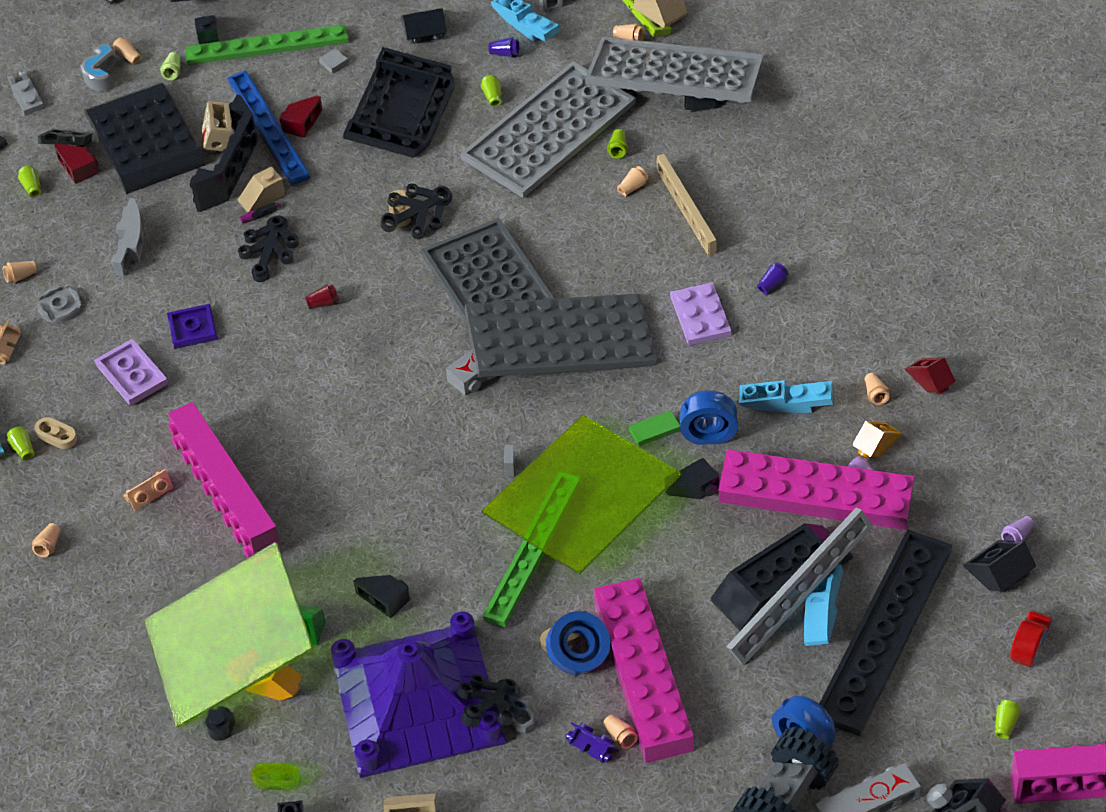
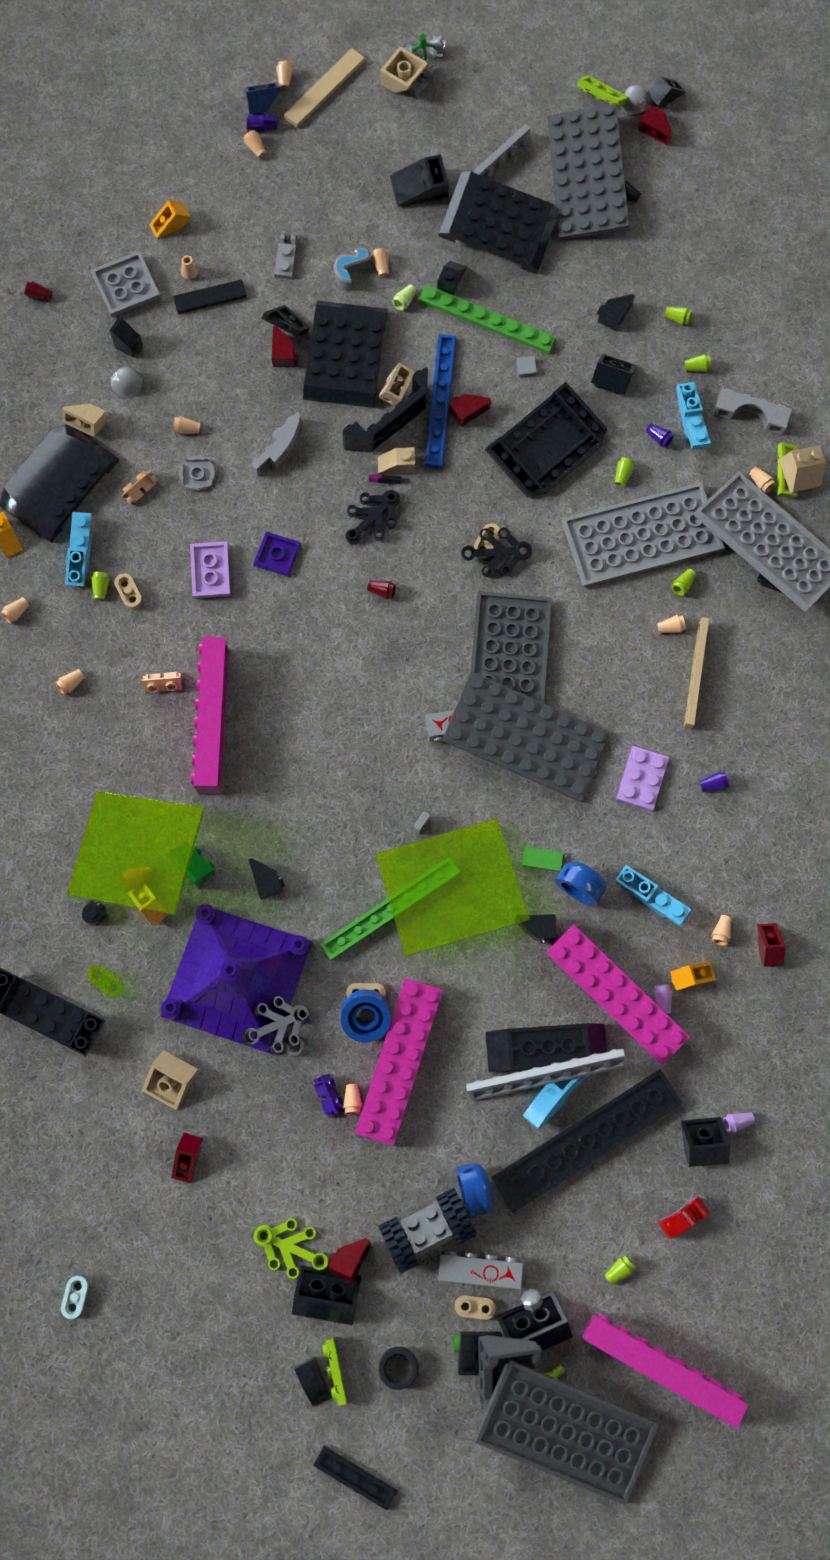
camera: 25 degrees right, 25 degrees up
(30, 180) = (240, 345): lime cone -> none

